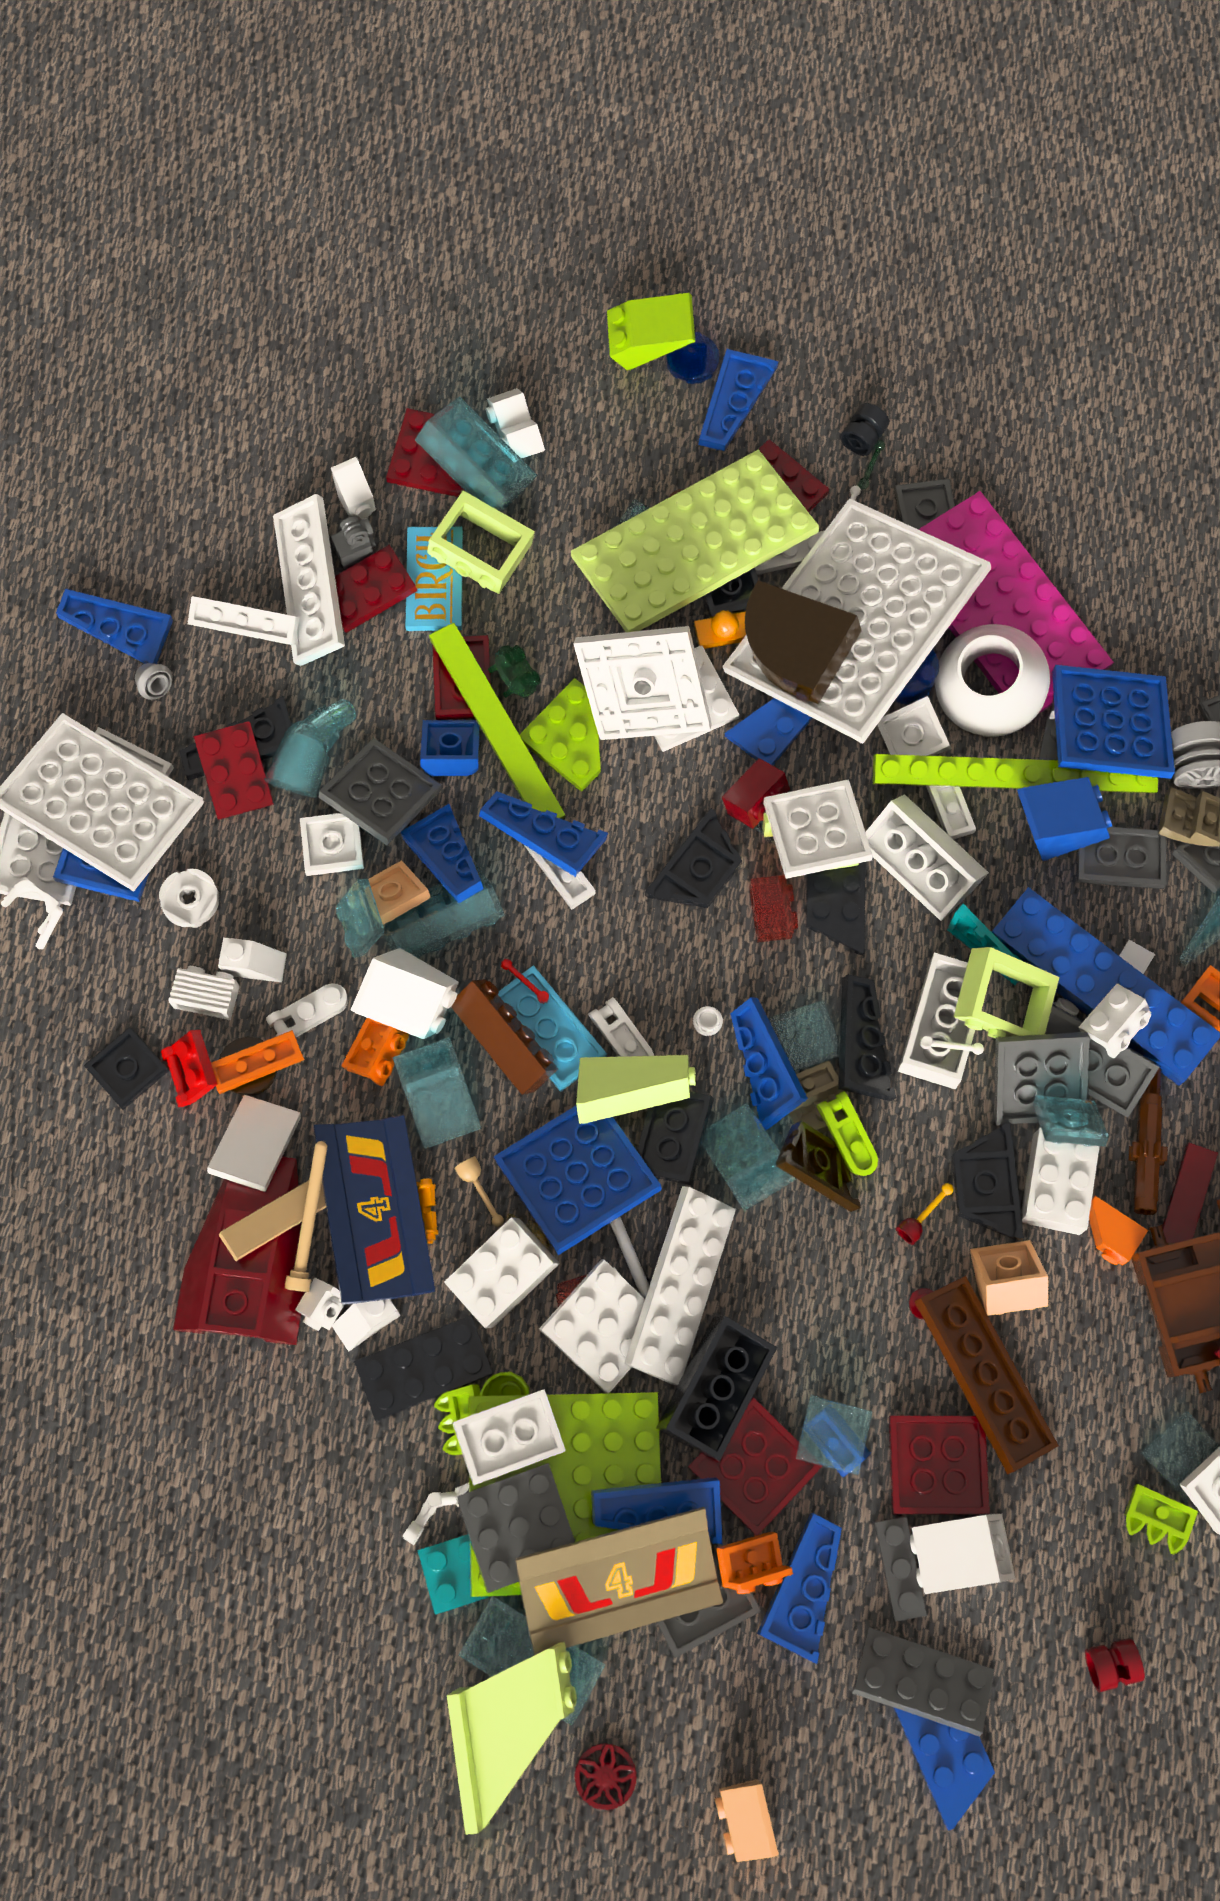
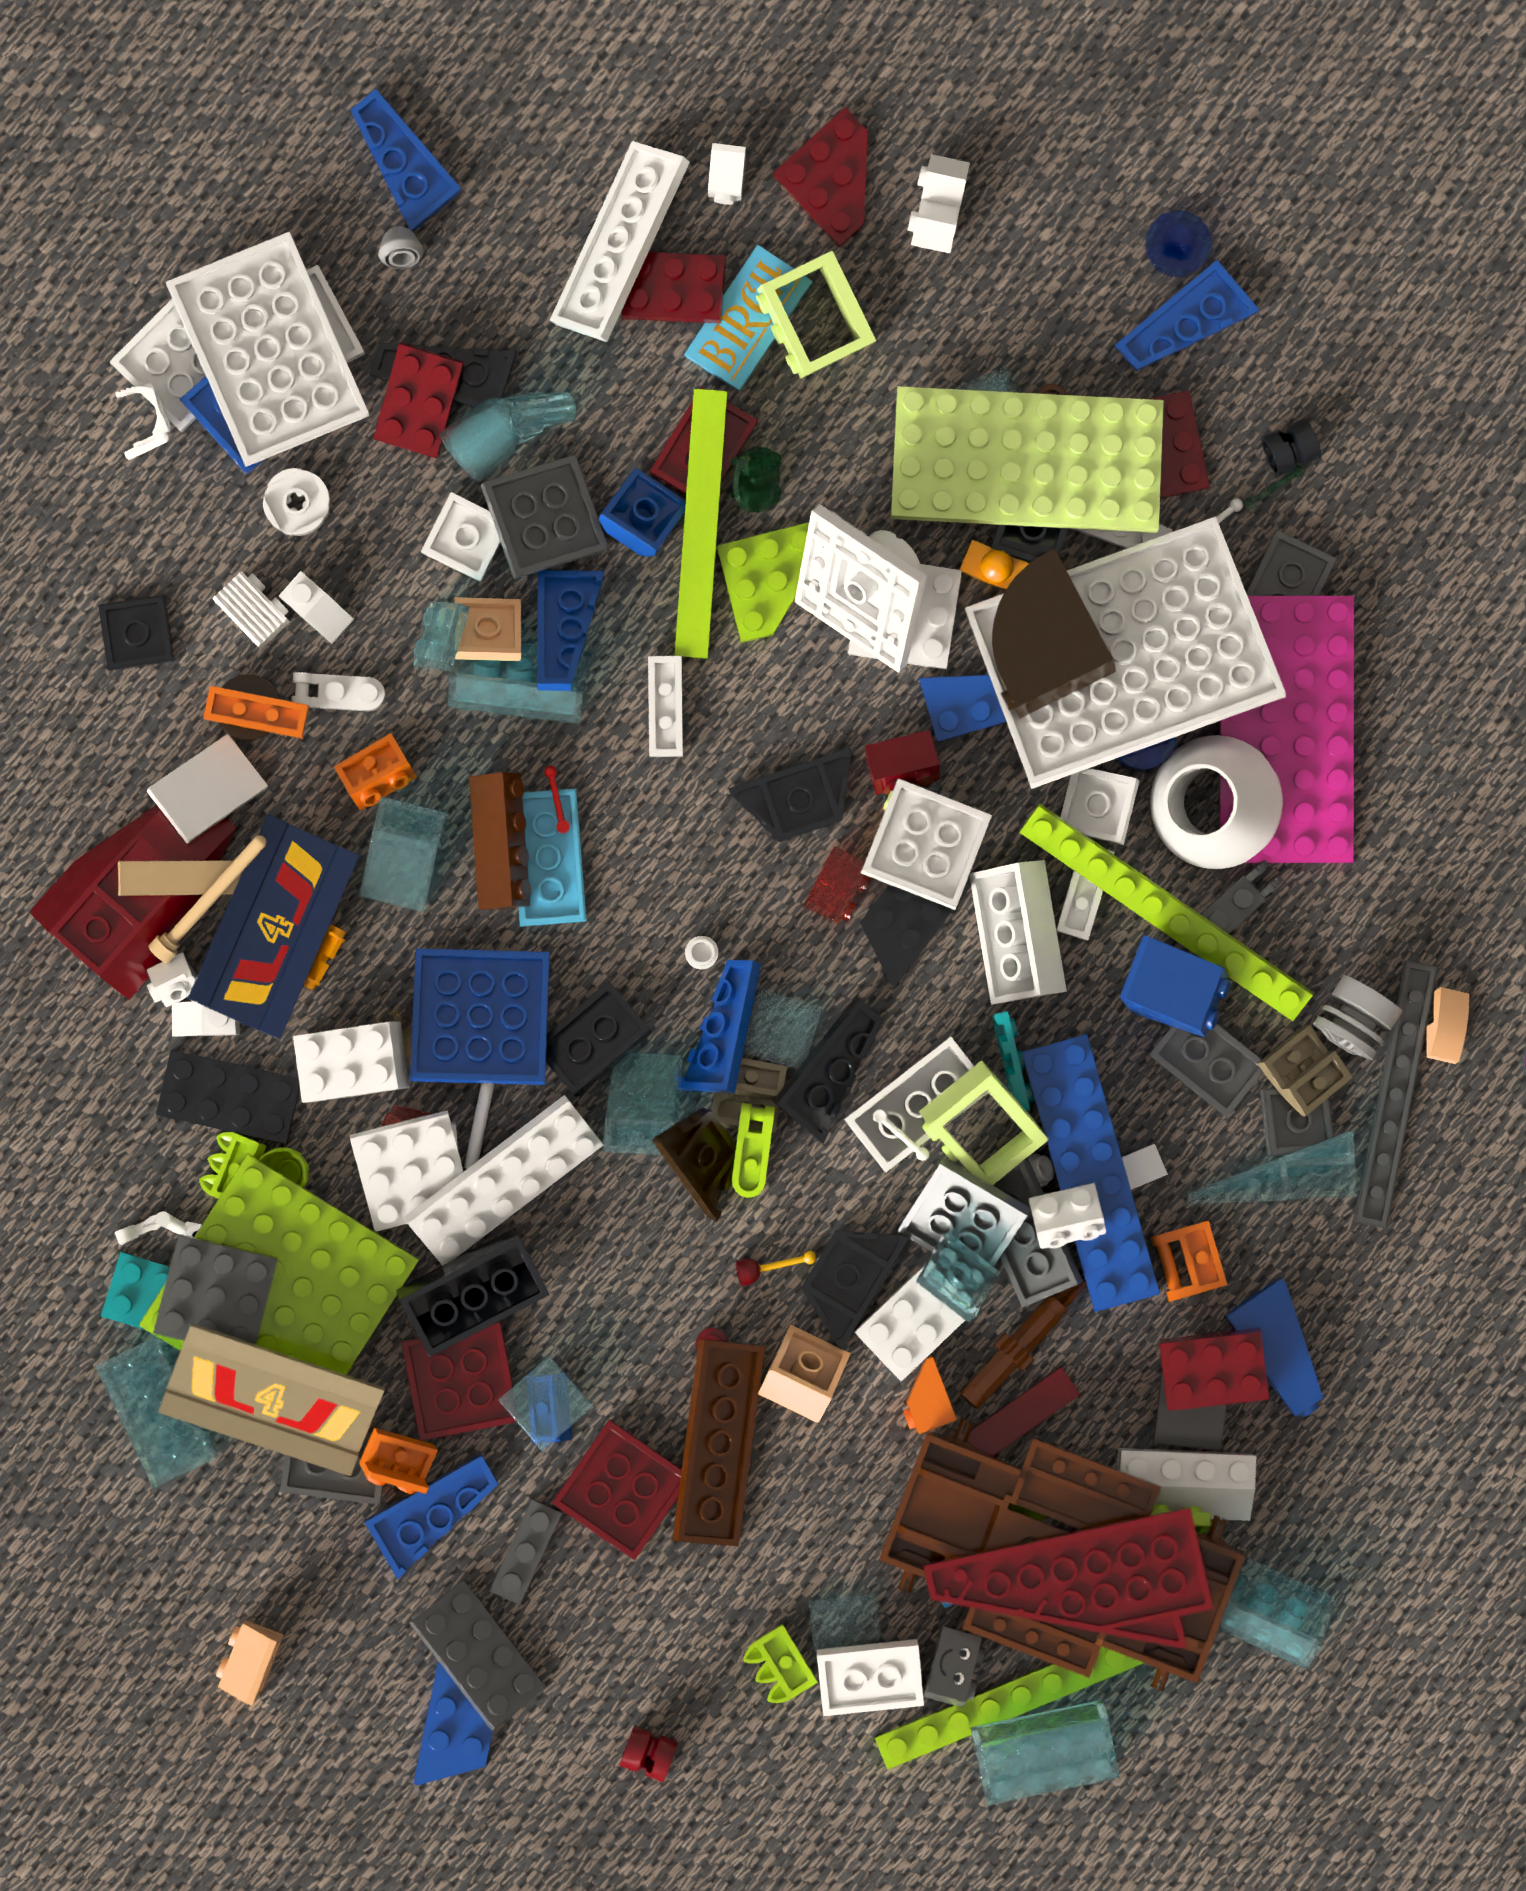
camera: 30 degrees right, 15 degrees up
(196, 1067) = (199, 679): red plate -> none
(243, 620) = (528, 242): white plate -> none
(353, 542) = (689, 230): dark grey brick -> none
(405, 994) = (433, 743): white slope -> none
(469, 1172) = (386, 947): tan hinge -> none
(475, 455) = (872, 219): clear light blue slope -> none
(503, 1727) = (96, 1449): yellowish green piece -> none
(508, 1437) = (257, 1214): white plate -> none
(555, 839) = (673, 672): blue wing -> none
(605, 1776) = (157, 1545): dark red wheel -> none
(622, 1033) = (612, 916): white plate -> none
(630, 1084) = (582, 968): yellowish green slope -> none
(645, 1503) = (348, 1354): blue wing -> none
(649, 328) = (1148, 189): lime slope -> none
(962, 1553) = (587, 1577): white slope -> none
(1112, 722) = (1296, 925): blue plate -> none

